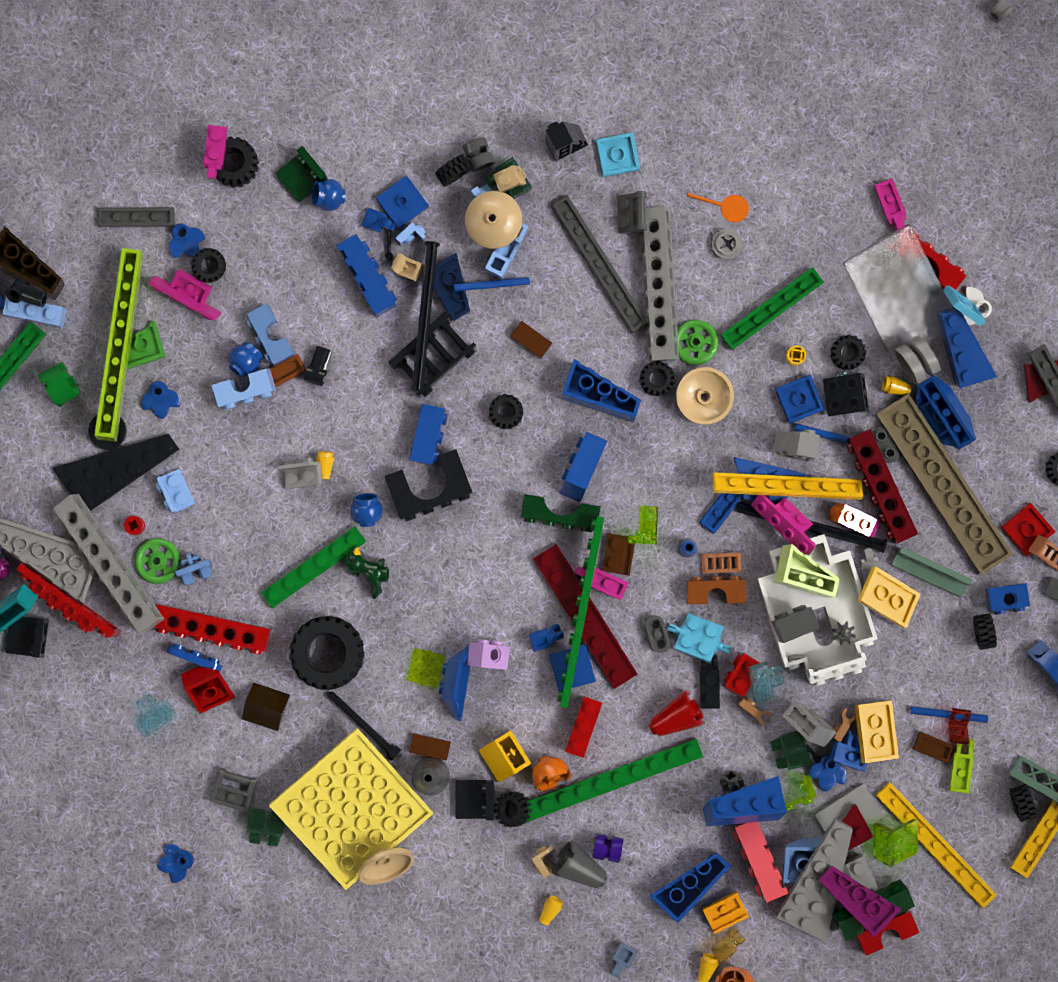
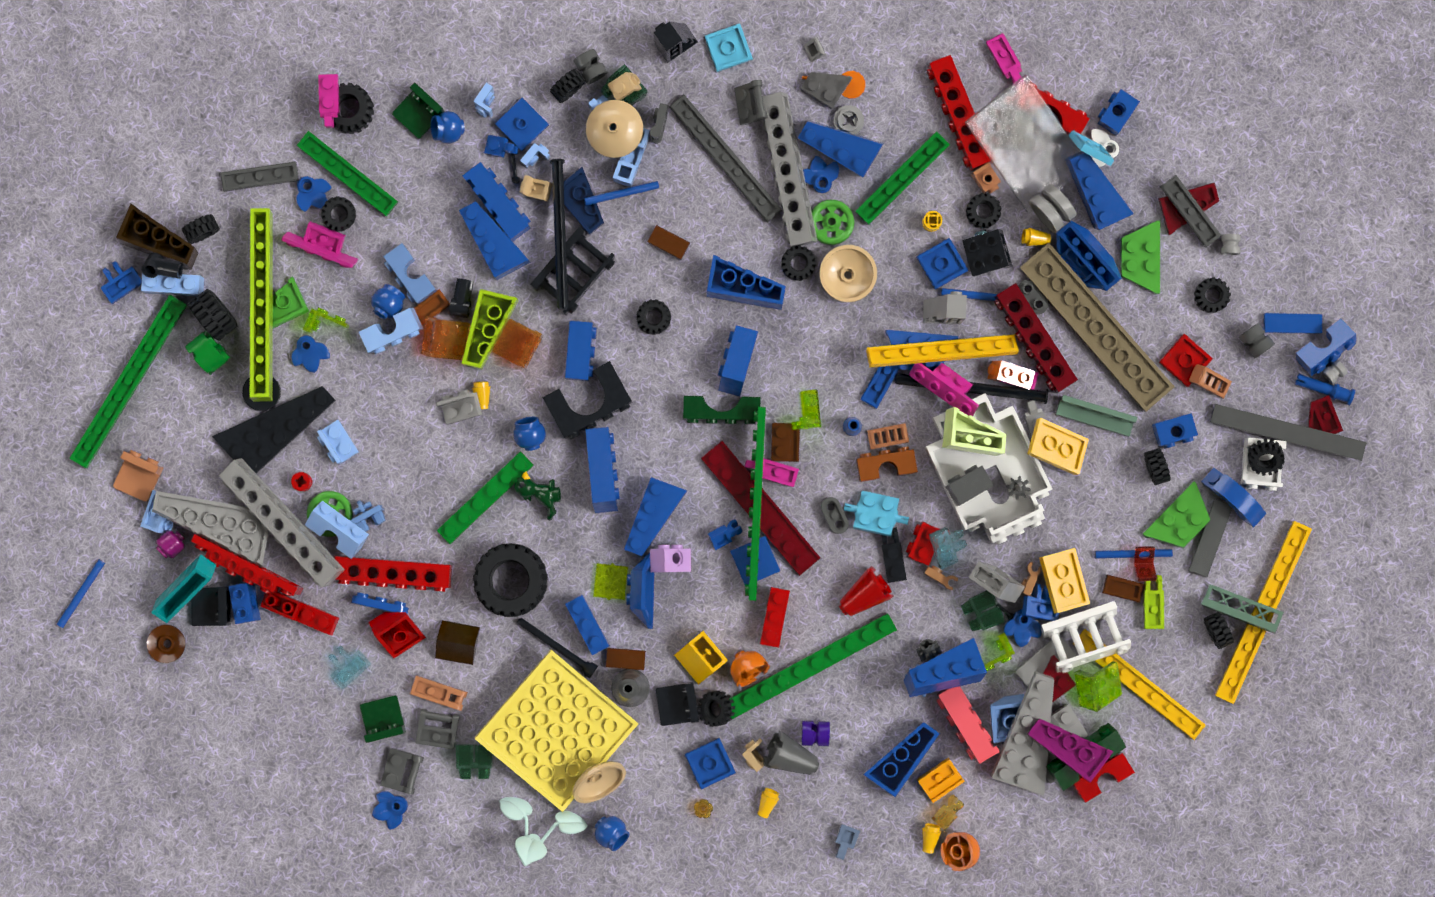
camera: 10 degrees left, 0 degrees up
(60, 638) = (244, 603): none -> blue brick
(70, 261) = (200, 229): none -> black tyre
(70, 347) = (212, 314): none -> black tyre
(115, 654) = (300, 612): none -> red slope
(168, 370) = (313, 322): none -> clear neon green bracket
(174, 586) = (349, 535): none -> light blue arch
(180, 772) = (382, 719): none -> dark green bracket
(186, 824) = (395, 770): none -> dark grey plate
(223, 226) = (347, 173): none -> green plate
(239, 754) = (437, 692): none -> nougat plate
(296, 404) = (444, 338): none -> clear orange bracket
(309, 921) = (531, 847): none -> light aqua plant
(341, 394) = (488, 322): none -> lime wedge
(360, 321) = (496, 247): none -> blue wedge
(367, 419) = (517, 343): none -> clear orange bracket
(370, 170) = (484, 98): none -> light blue bracket
(391, 917) = (611, 832): none -> blue piece
(397, 708) = (587, 624): none -> blue arch
(433, 556) = (601, 469): none -> blue wedge
(477, 607) = (654, 511): none -> blue wedge
(485, 901) = (698, 808): none -> clear yellow plate
(499, 862) = (710, 763): none -> blue plate
(540, 216) = (660, 118): none -> dark grey plate
(692, 291) = (819, 172): none -> blue plate
(703, 168) = (814, 49): none -> light grey slope
(709, 207) = (826, 87): none -> flat silver wing
(717, 269) = (842, 146): none -> blue wedge
(832, 204) = (946, 66): none -> red brick
(848, 318) = (979, 177): none -> nougat brick
(895, 772) = (1088, 619): none -> white fence
(999, 421) = (1142, 257): none -> bright green wing
(1001, 687) = (1181, 519): none -> bright green wing
(1005, 267) = (1125, 103): none -> blue brick
(1028, 710) = (1210, 538): none -> dark grey tile

